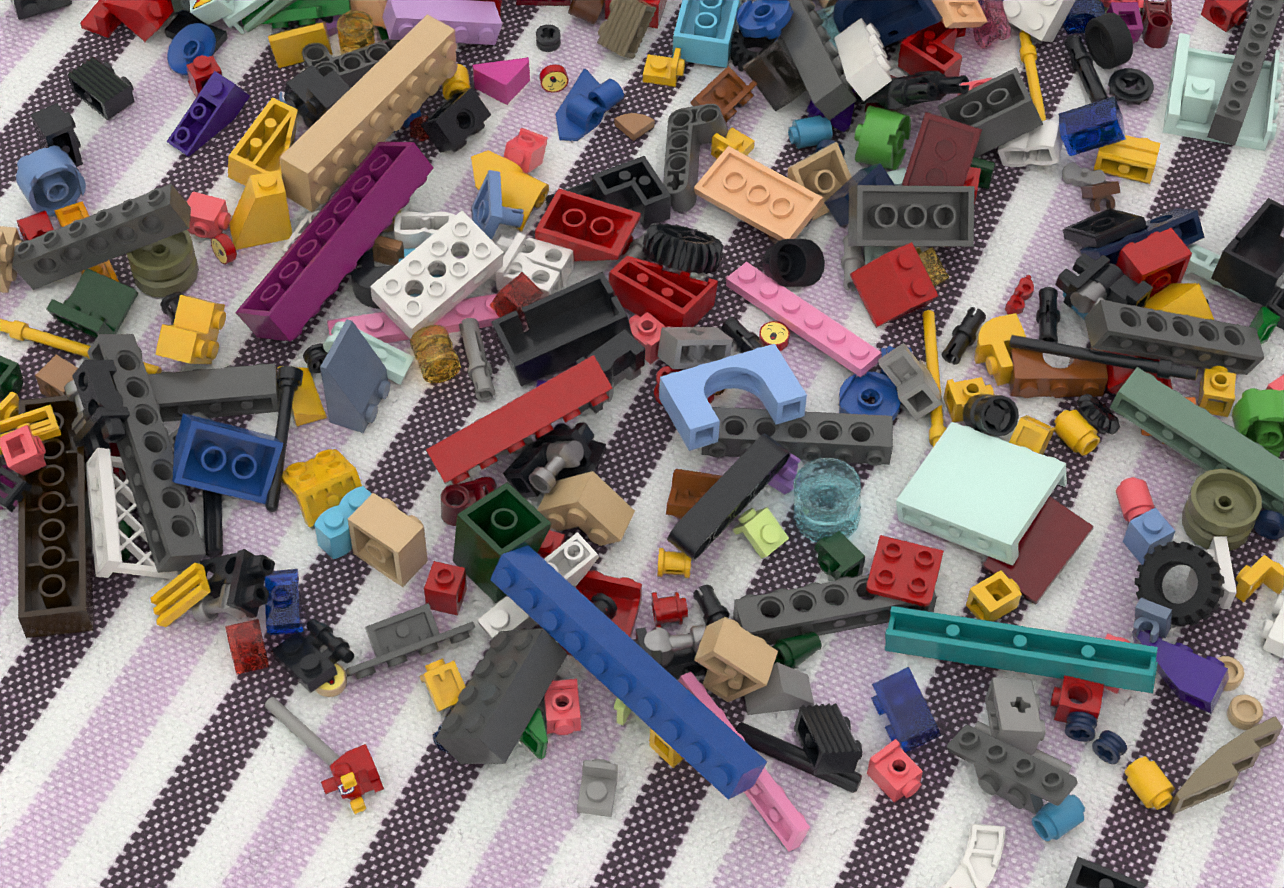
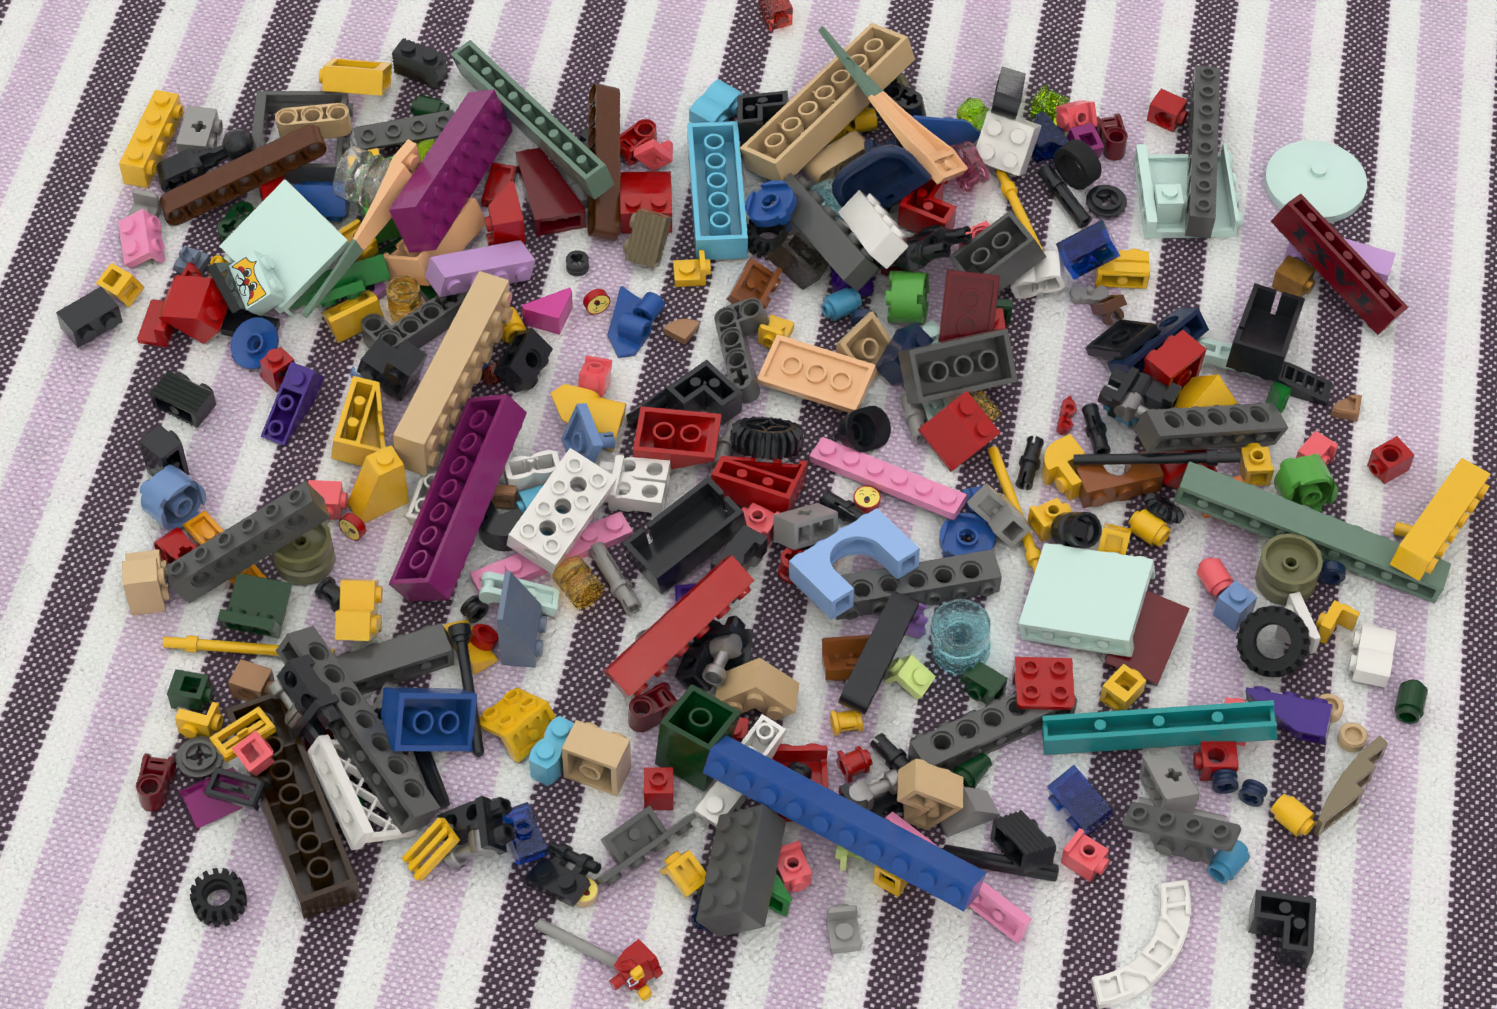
camera: 15 degrees left, 0 degrees up
(247, 646) = (504, 880): clear red brick -> none
(313, 389) = (484, 637): none -> red tile
(515, 295) = (634, 515): clear red brick -> none
(1152, 617) = (1260, 676): sand blue tile -> none

